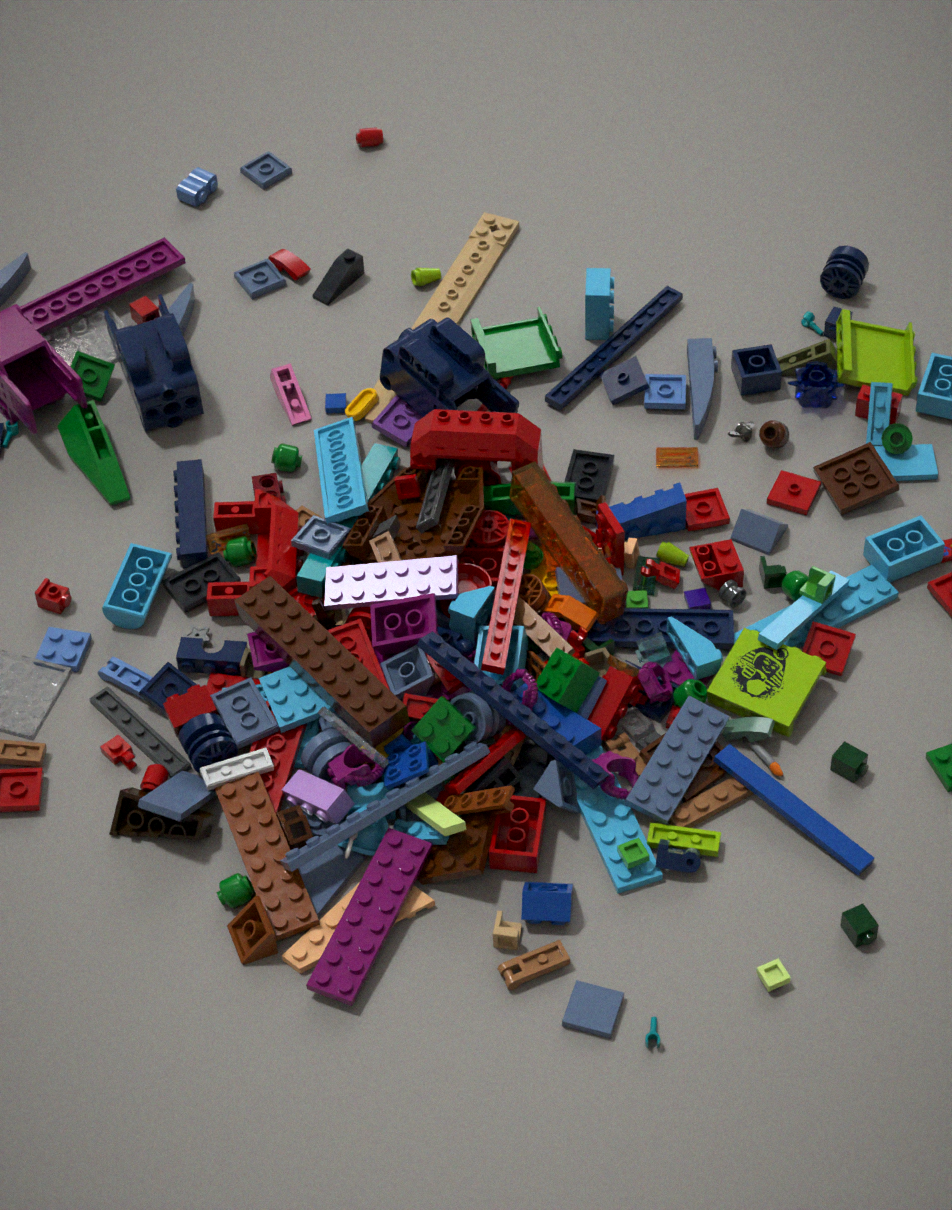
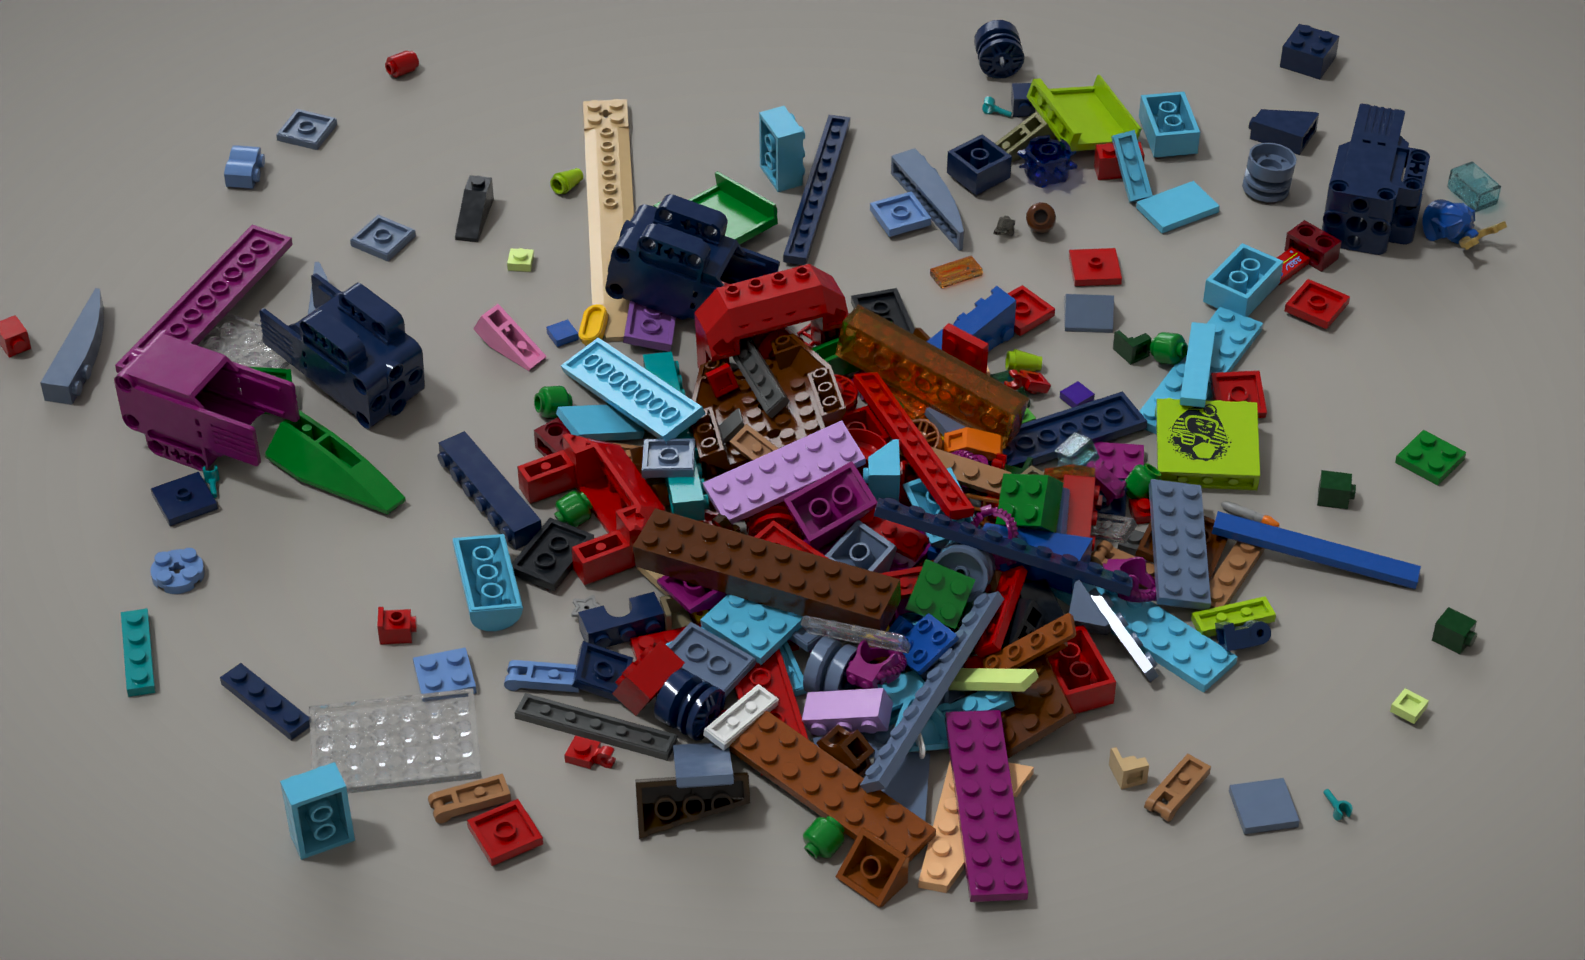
camera: 30 degrees left, 5 degrees down
(143, 310) = (282, 306): red brick -> none
(154, 776) = (651, 762): red brick -> none
(218, 540) = (545, 503): clear orange tile -> none
(290, 262) = (400, 209): red slope -> none
(298, 486) = (599, 423): none -> medium azure tile
(347, 331) = (520, 260): none -> yellowish green plate
(547, 902) = (1148, 724): blue slope -> none
(578, 824) = (1130, 641): none -> plate
(624, 380) = (853, 215): dark blue plate -> none
(633, 853) = (1202, 644): bright green plate -> none
(694, 649) = (1119, 437): medium azure slope -> none
(717, 563) = (1081, 353): red slope -> none
(732, 593) = (1109, 377): dark grey wheel -> none
(752, 727) = (1227, 489): sand green slope -> none
(819, 585) = (1198, 335): bright green panel -> none
(856, 478) = (1148, 233): reddish brown plate -> none
(897, 438) = (1163, 183): green plate -> none

